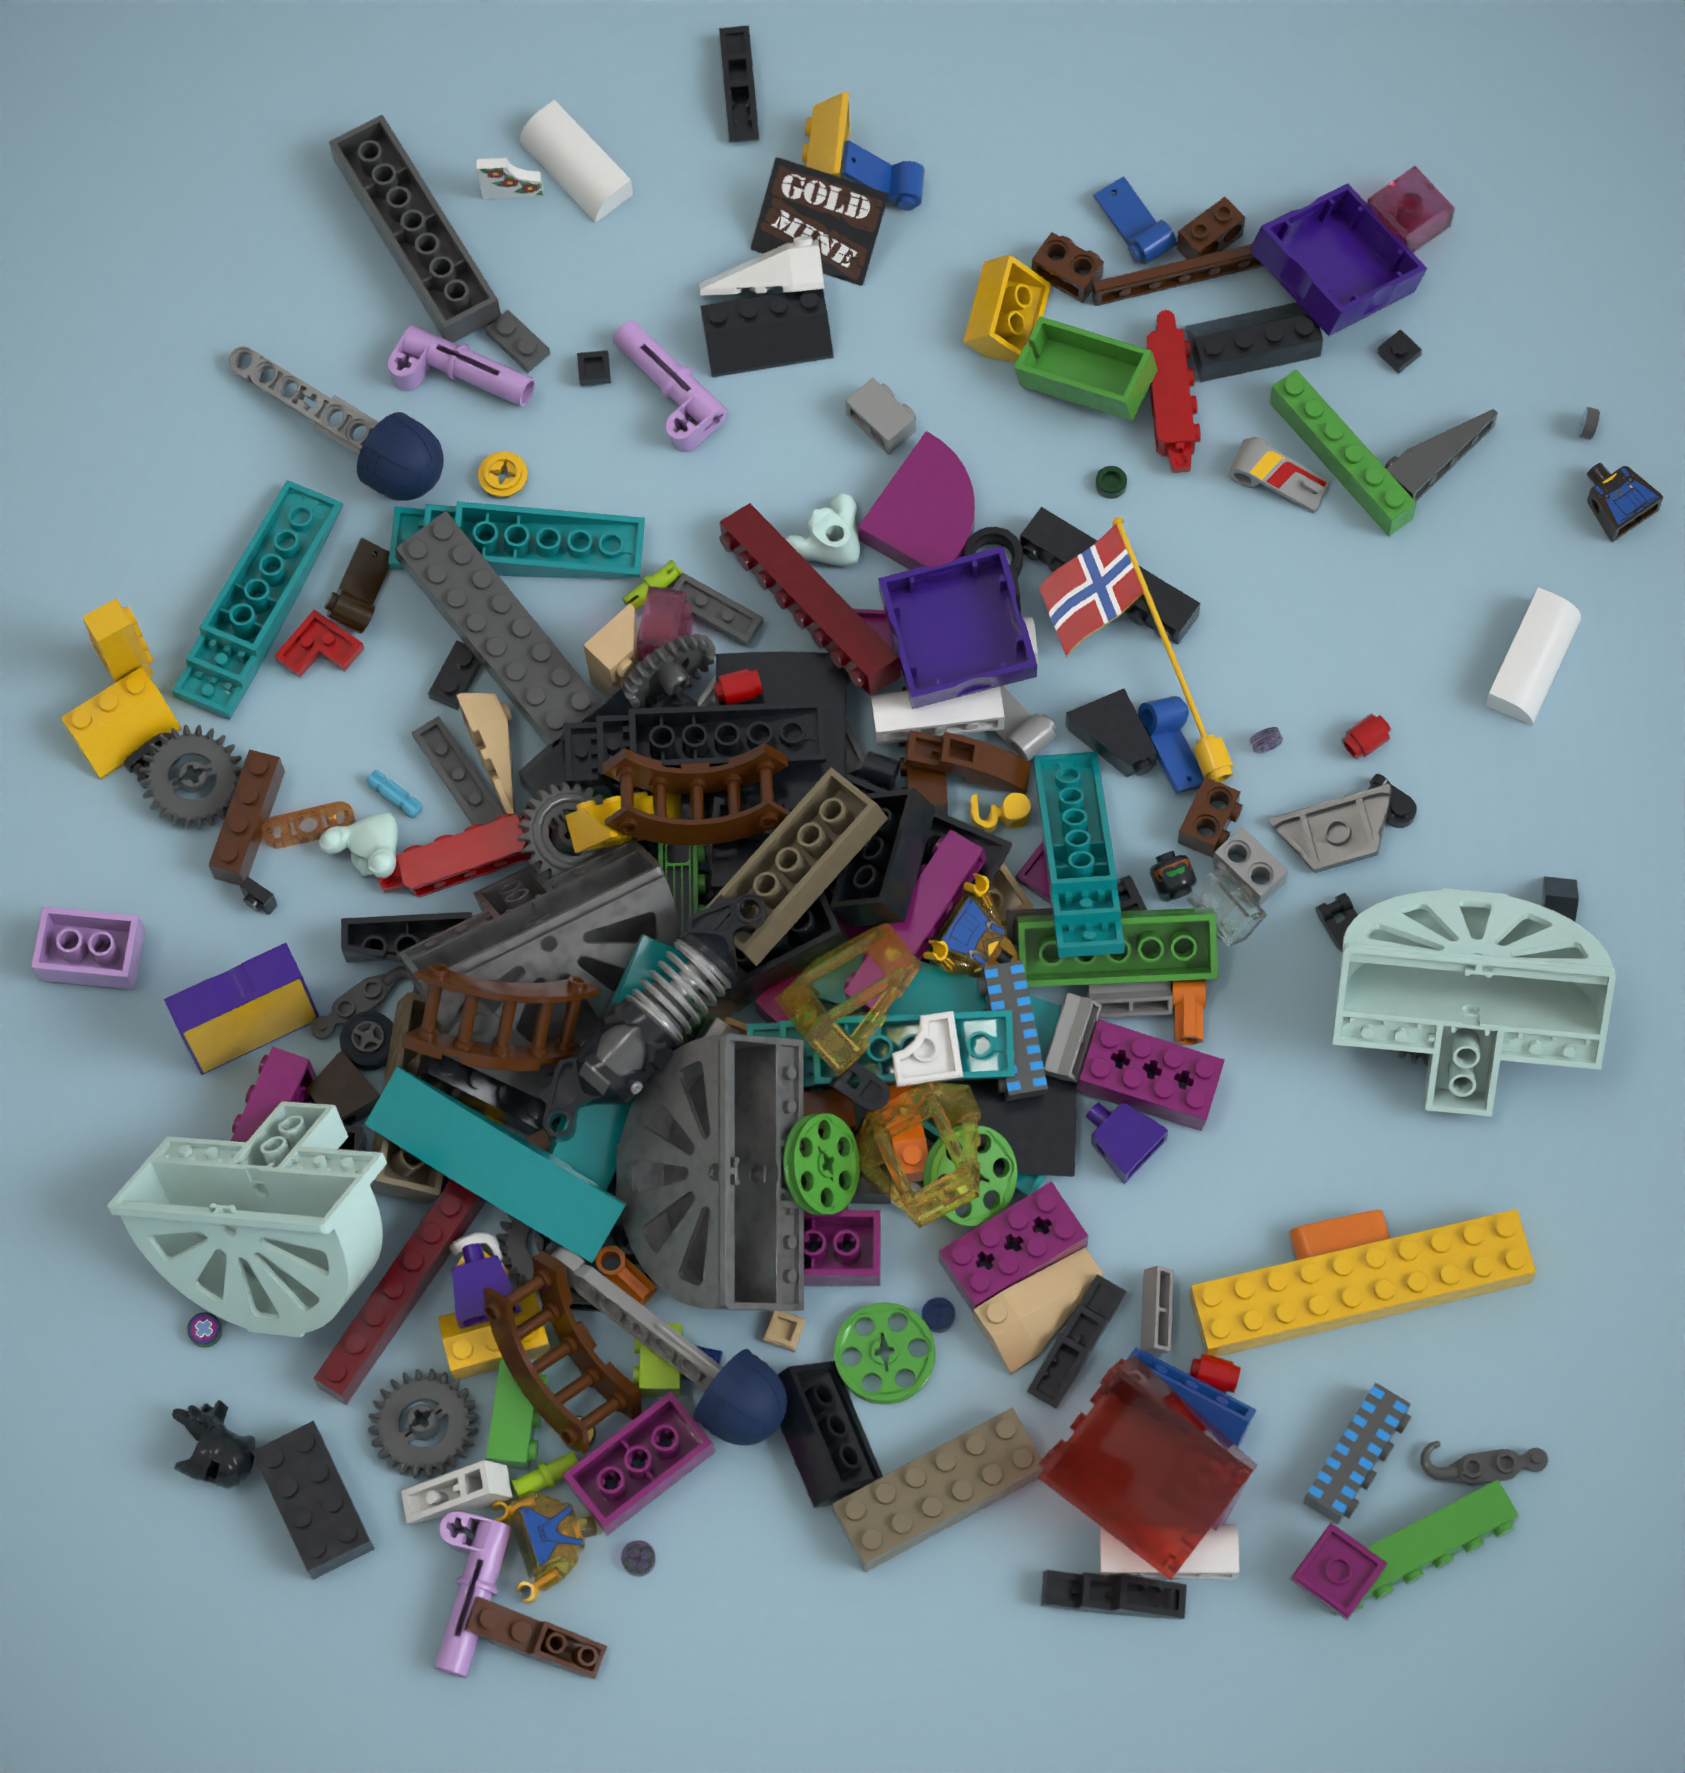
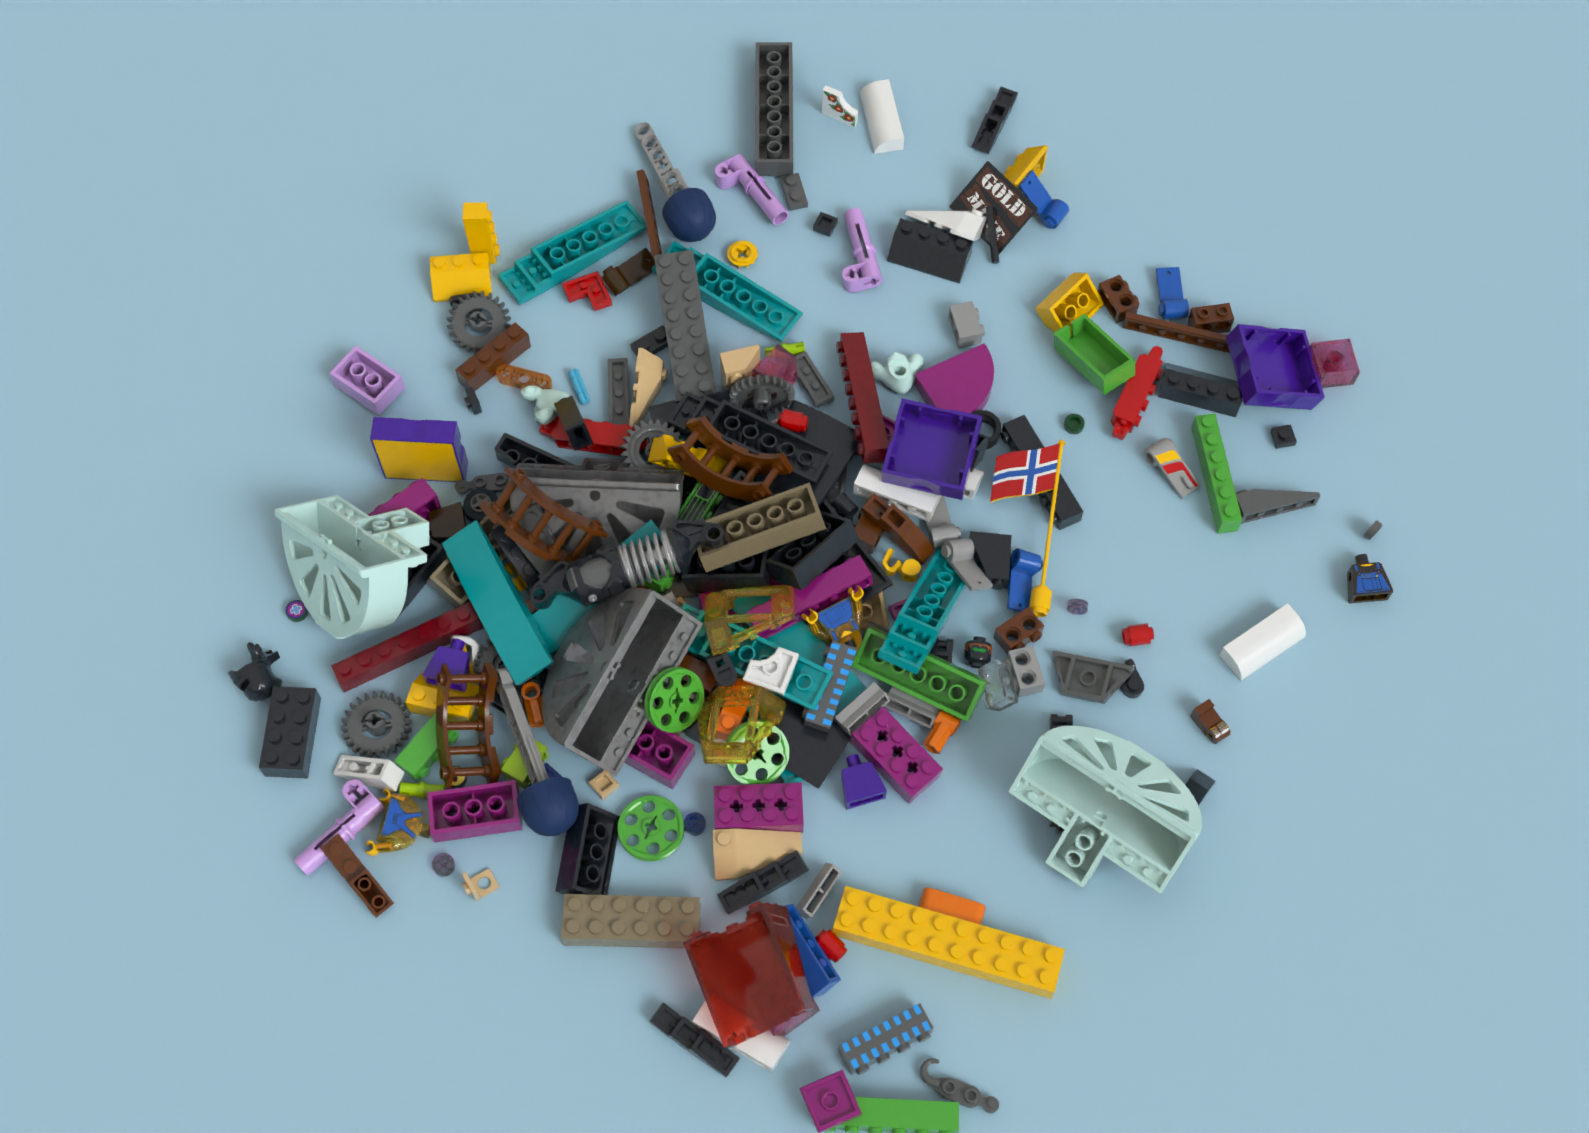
camera: 25 degrees right, 5 degrees down
(339, 488) = (649, 213): none -> reddish brown tile
(431, 852) = (573, 423): none -> black slope
(698, 1567) = (471, 885): none -> tan bracket
(840, 262) = (992, 234): none -> black bar
(1070, 754) = (960, 555): none -> light grey door
(1527, 804) = (1210, 722): none -> reddish brown leg

